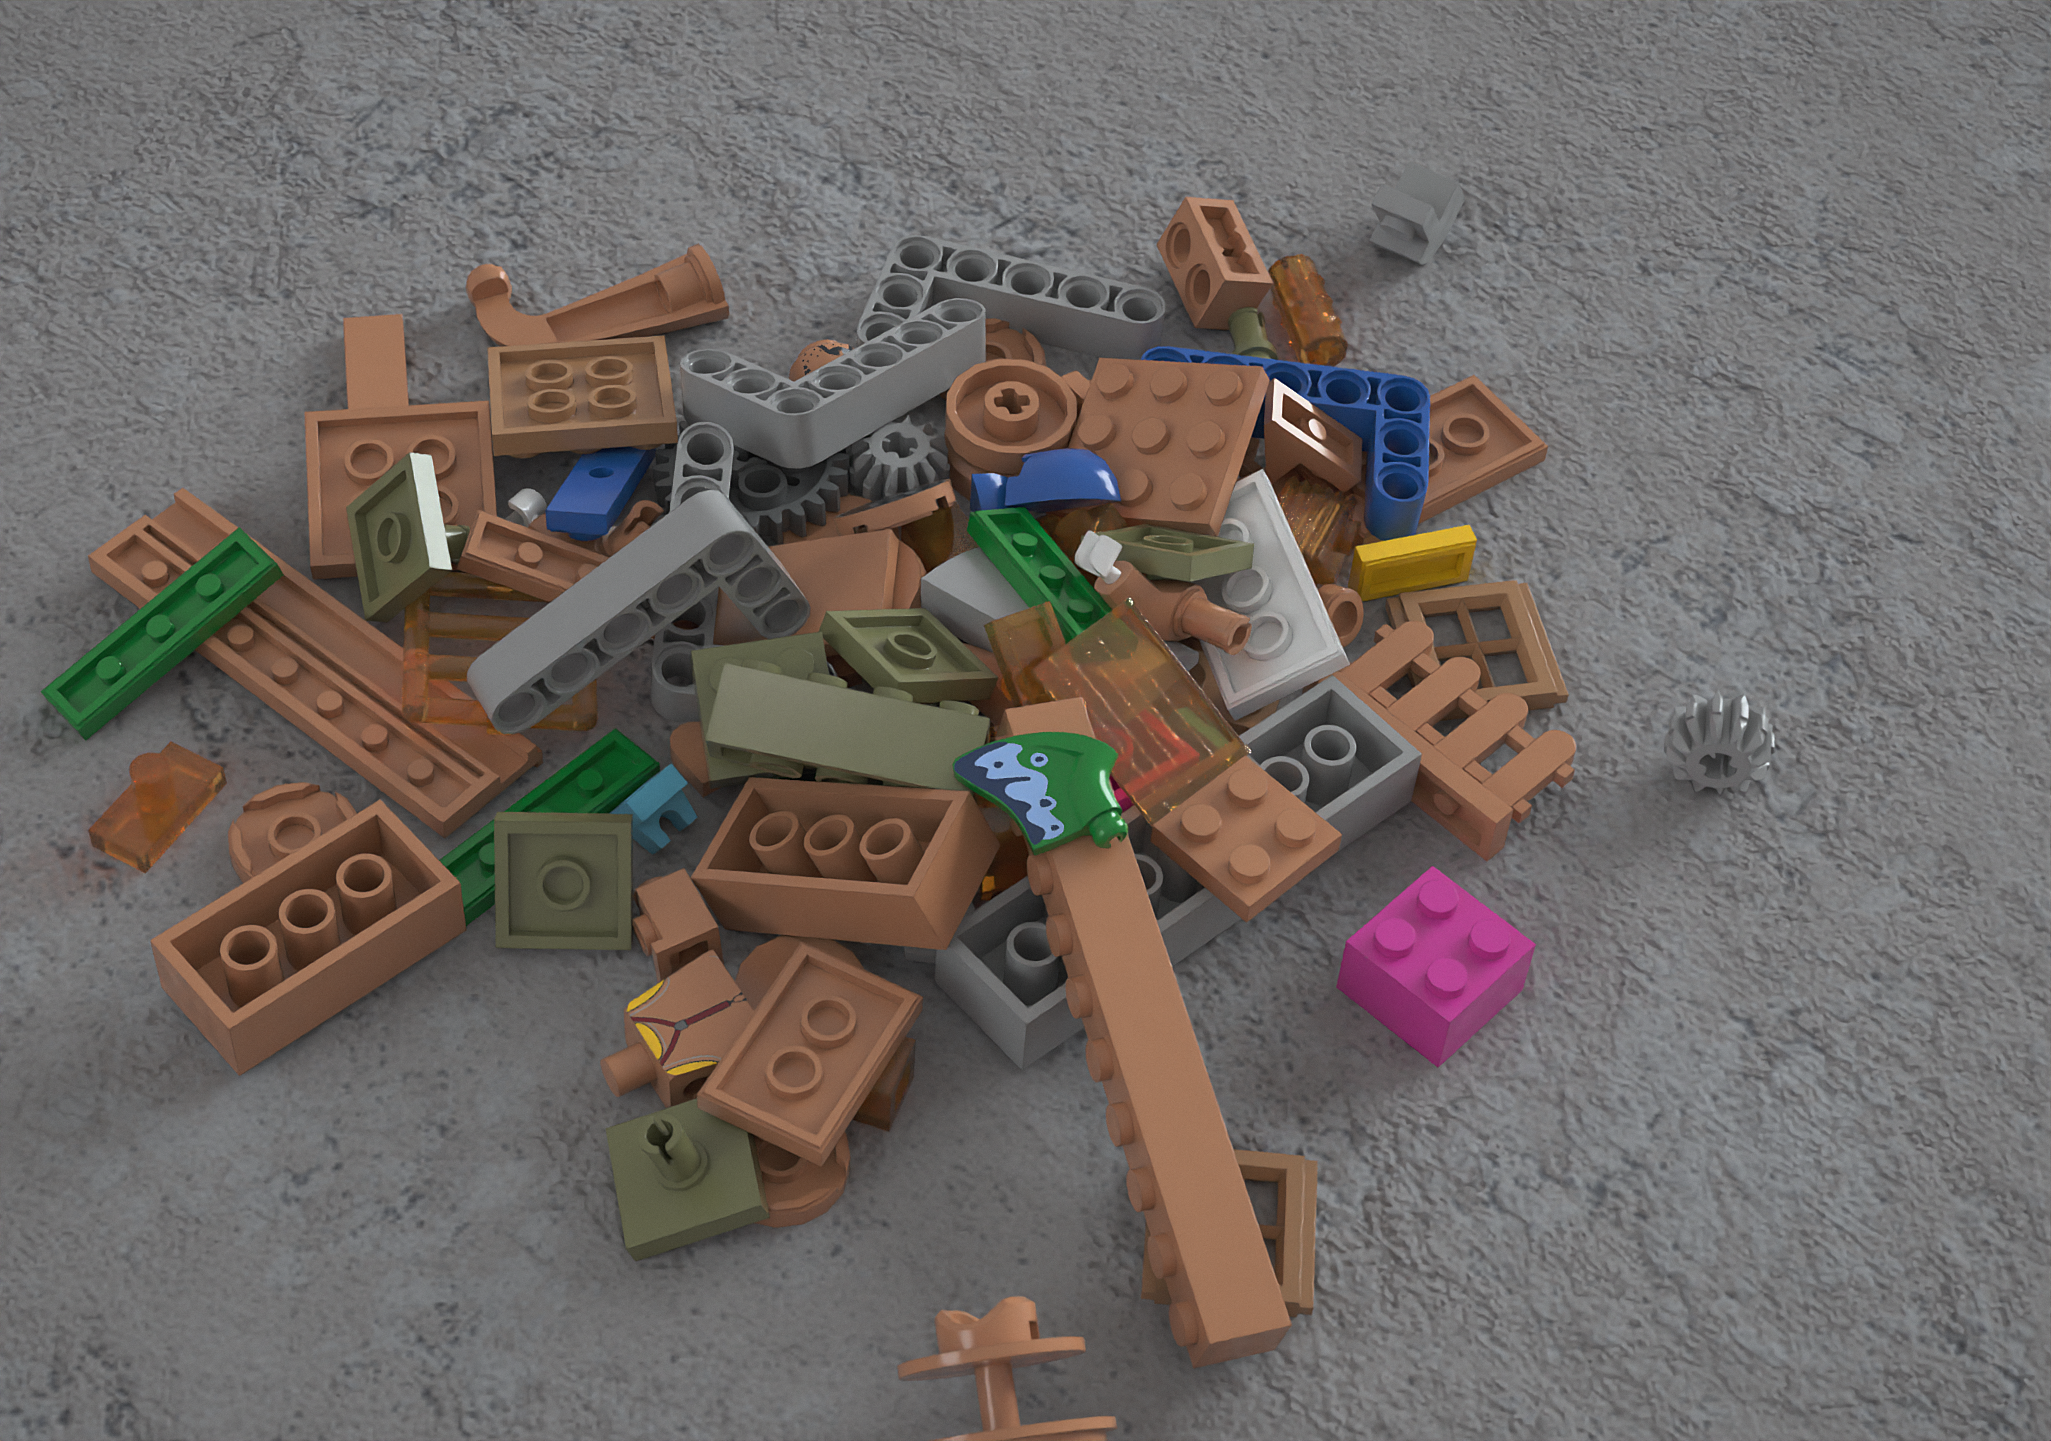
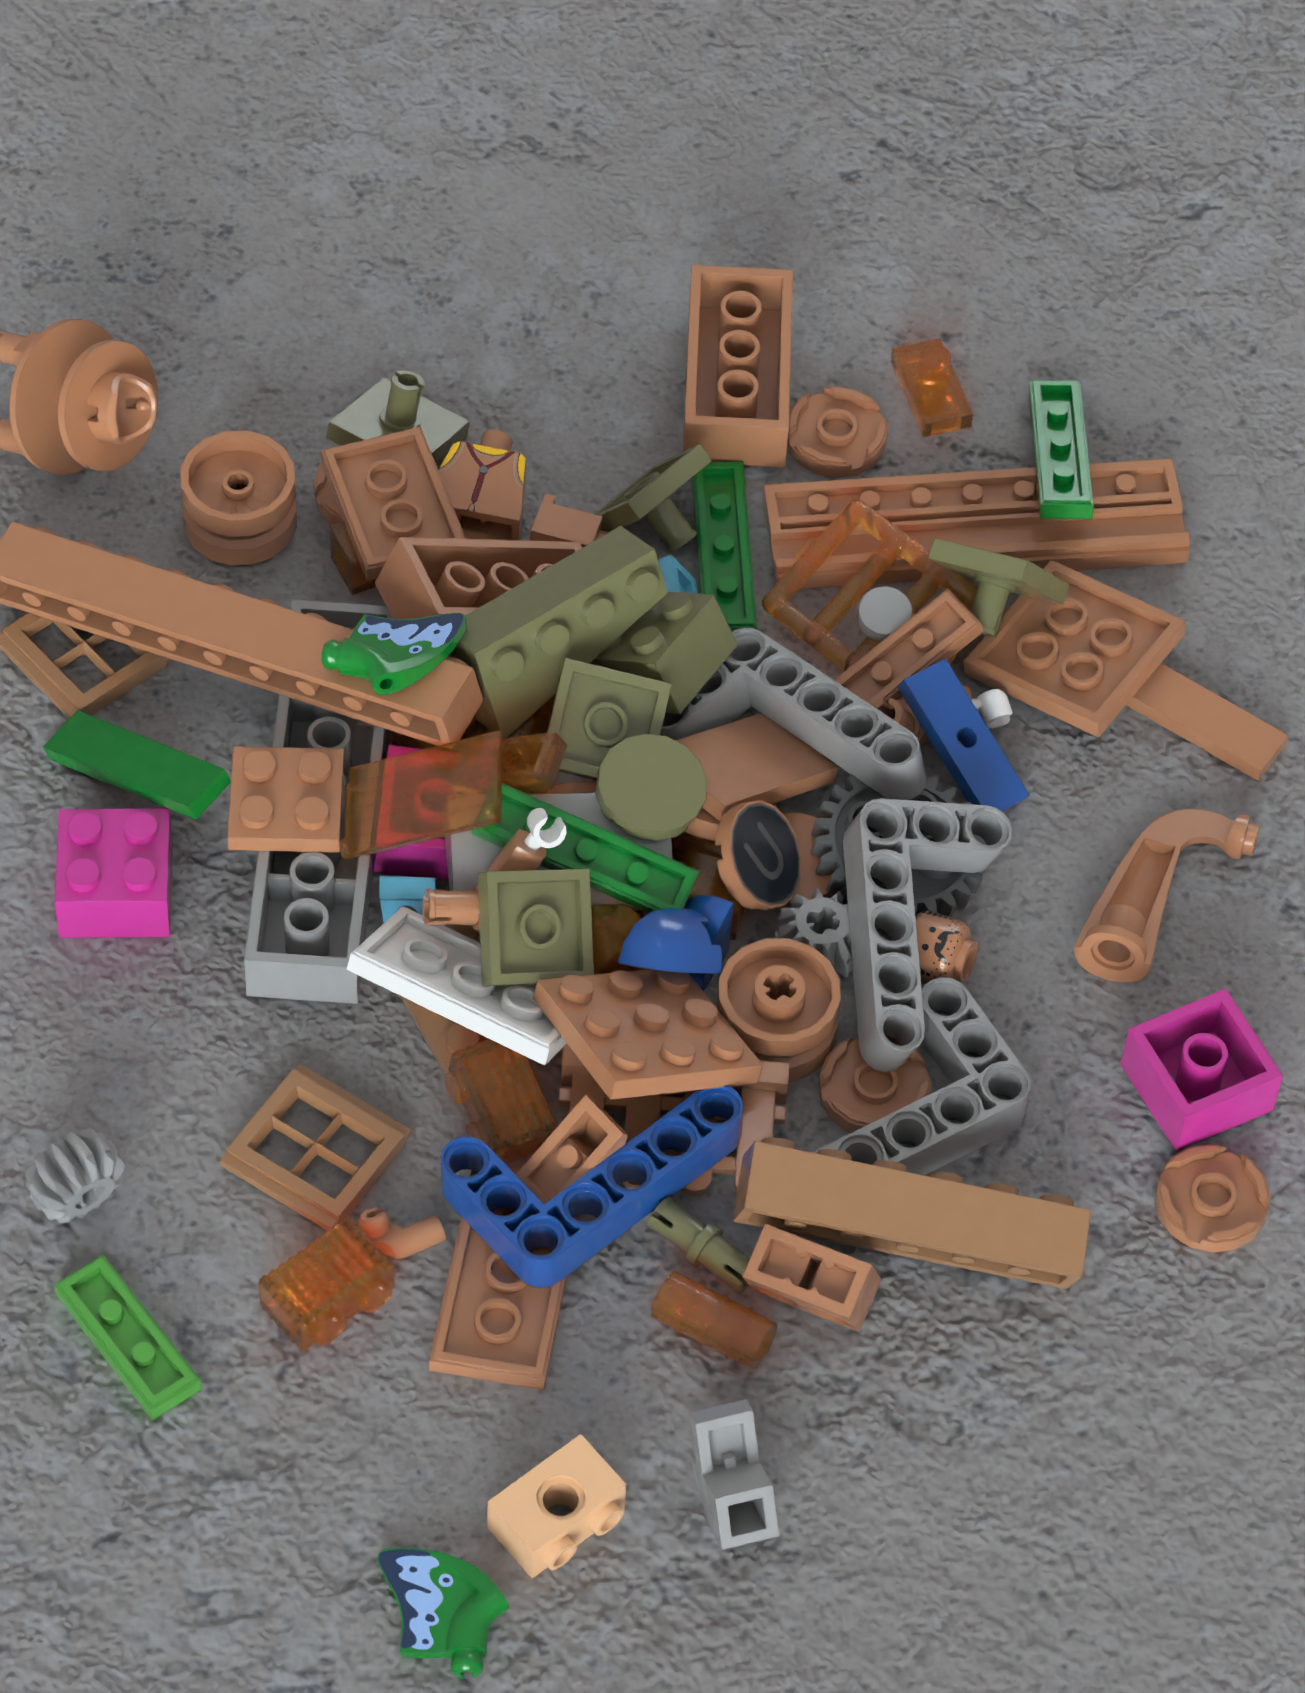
camera: 135 degrees right, 5 degrees up
(512, 607) = (883, 612): none -> light grey tile
(581, 396) = (1067, 793): medium nougat plate -> none
(628, 602) = (776, 632): light grey beam -> none
(762, 168) = (1201, 1069): none -> dark pink brick
(850, 136) = (1212, 1198): none -> nougat tile
(935, 1213) = (238, 497): none -> nougat wheel
(938, 574) = (651, 786): none -> olive tile
(1107, 227) = (912, 1213): none -> medium nougat brick
(1327, 1021) = (137, 764): none -> green tile
(1344, 610) = (423, 1070): nougat tile -> none
(1412, 563) = (416, 1159): yellow tile -> none
(1450, 778) = (273, 1011): nougat fence -> none
(1492, 550) = (398, 1240): none -> nougat arm
(1556, 296) = (568, 1477): none -> light nougat brick
(1579, 538) = (327, 1285): none -> clear orange brick
(1696, 317) = (442, 1606): none -> green arm
(1769, 639) = (127, 1337): none -> bright green tile

